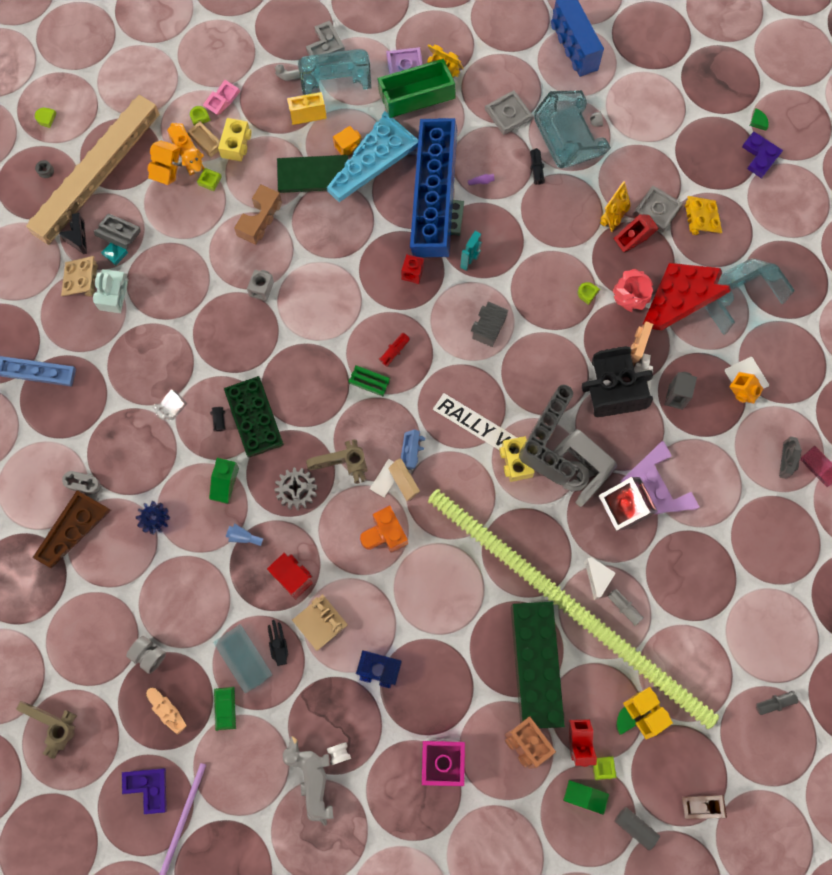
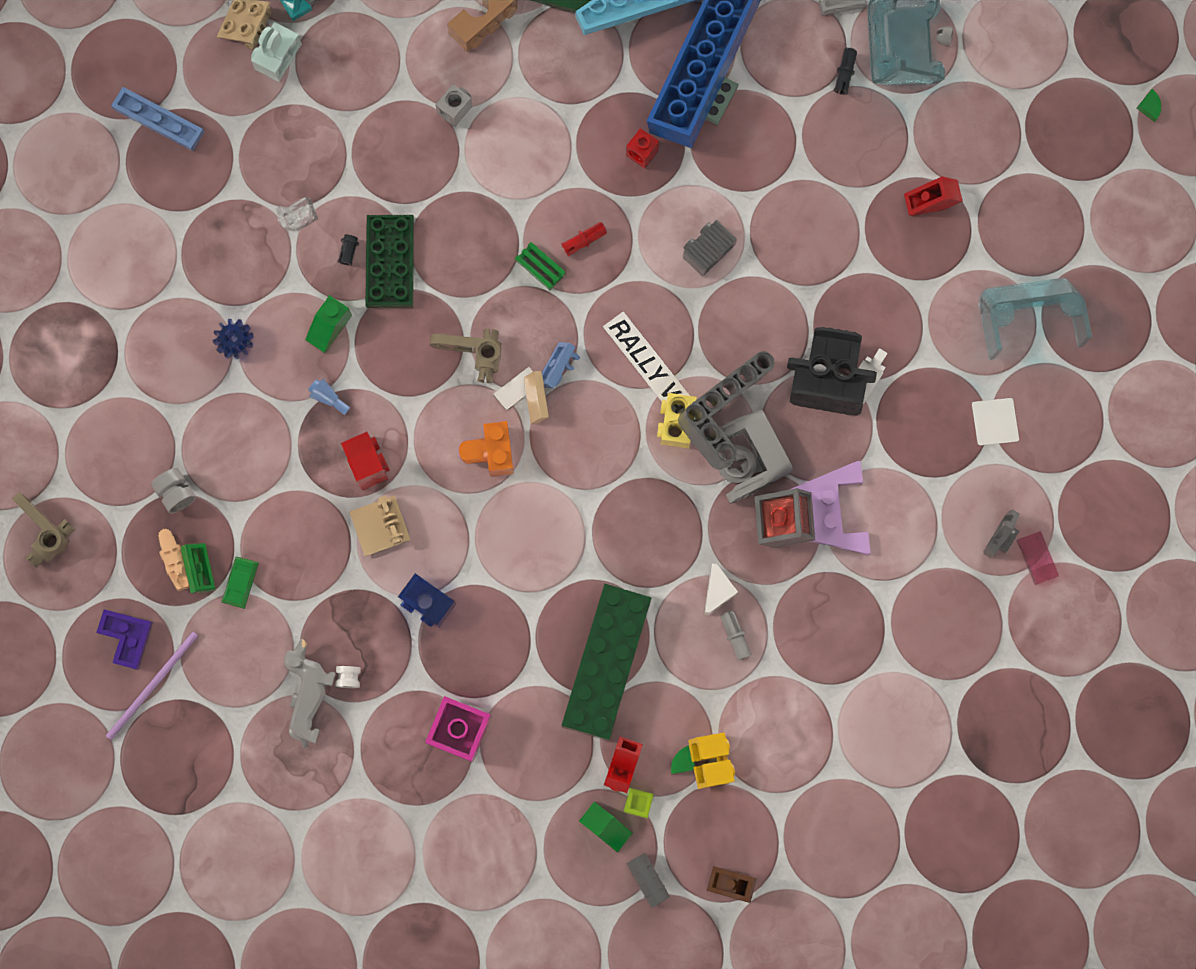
camera: 20 degrees right, 5 degrees up
(72, 525) = (138, 316): reddish brown wing -> none
(82, 478) = (169, 265): light grey beam -> none
(184, 711) = (194, 568): none -> green tile
(242, 658) = (279, 534): clear light blue piece -> none
(278, 646) = (323, 535): black piece -> none
(303, 488) = (416, 366): light grey gear -> none
(472, 250) = (721, 150): teal plate -> none
(483, 179) = (772, 64): medium lavender piece -> none
(529, 744) = (562, 742): nougat bracket -> none
(574, 610) = (672, 612): yellowish green piece -> none
(587, 292) = (844, 250): lime tile -> none
(616, 208) = (920, 157): yellow hinge -> none
(633, 290) = (898, 267): coral hair -> none
(638, 347) = (872, 340): light nougat plate -> none
(659, 206) = (975, 174): light grey tile -> none
(680, 390) = (903, 408): dark grey brick -> none
(684, 292) = (956, 291): red wing -> none
(702, 215) = (1026, 203): yellow hinge -> none
(746, 387) = (985, 433): light orange brick -> none
(765, 153) = (1140, 150): dark purple plate -> none
(777, 703) = (865, 805): dark grey axle -> none

